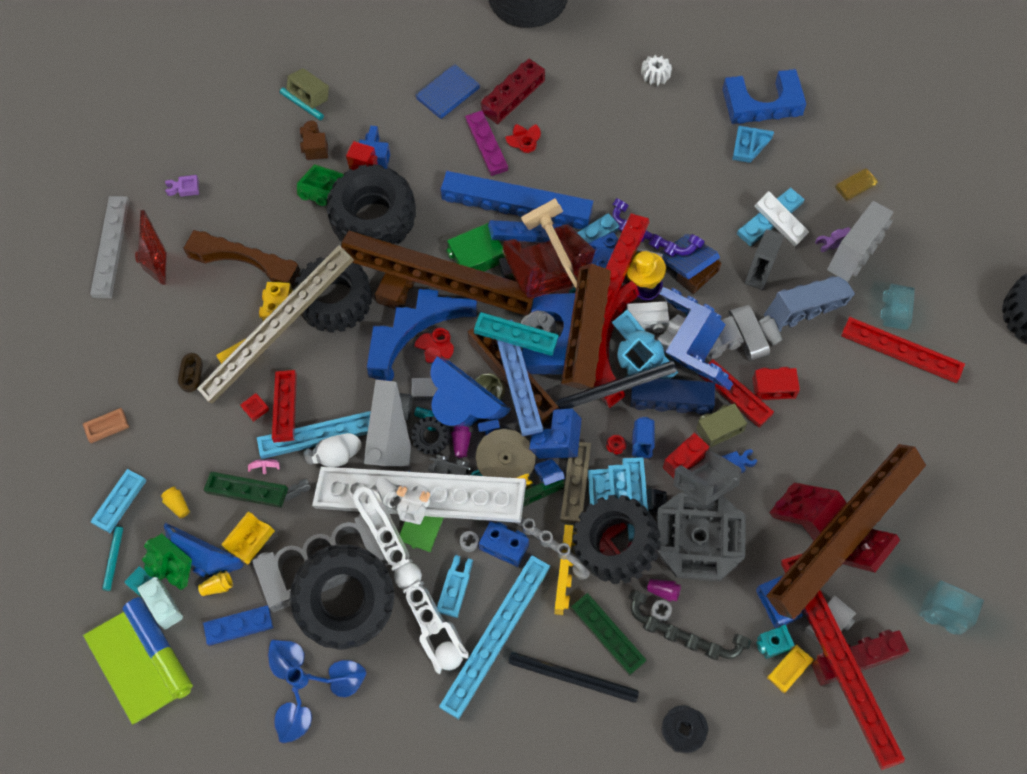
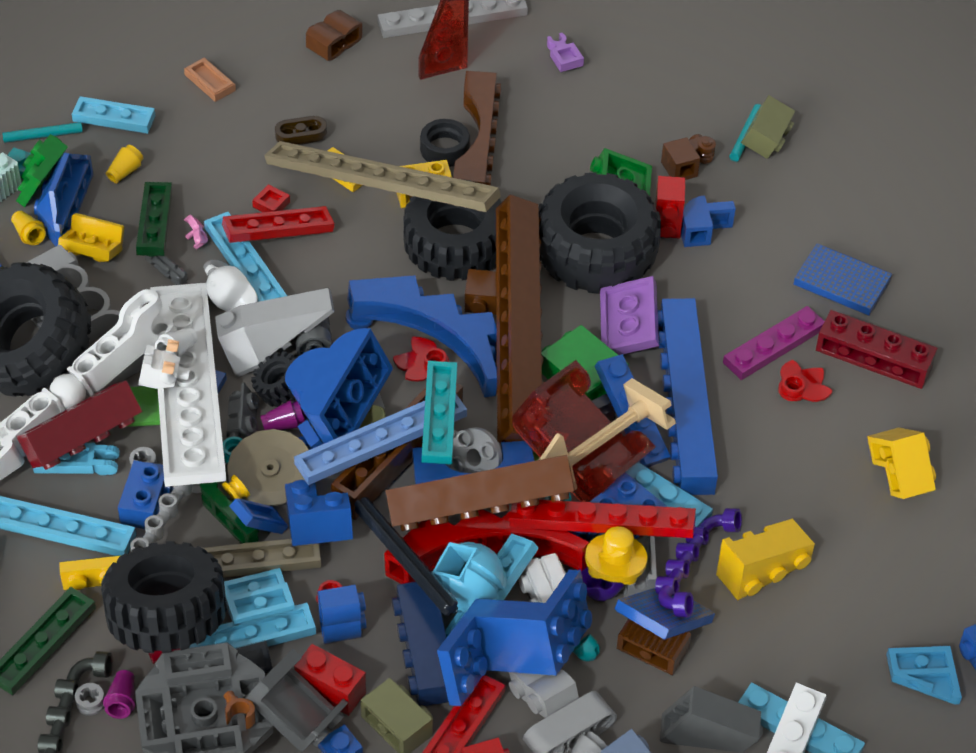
camera: 70 degrees right, 15 degrees down
(99, 327) = (333, 35): none -> reddish brown brick
(236, 270) = (444, 129): none -> black tyre
(440, 573) = (79, 424): none -> dark red brick
(444, 212) = (630, 316): none -> medium lavender plate
(604, 101) = (905, 459): none -> yellow brick
(656, 196) = (763, 557): none -> yellow wedge
(706, 513) = (239, 705): none -> dark orange piece

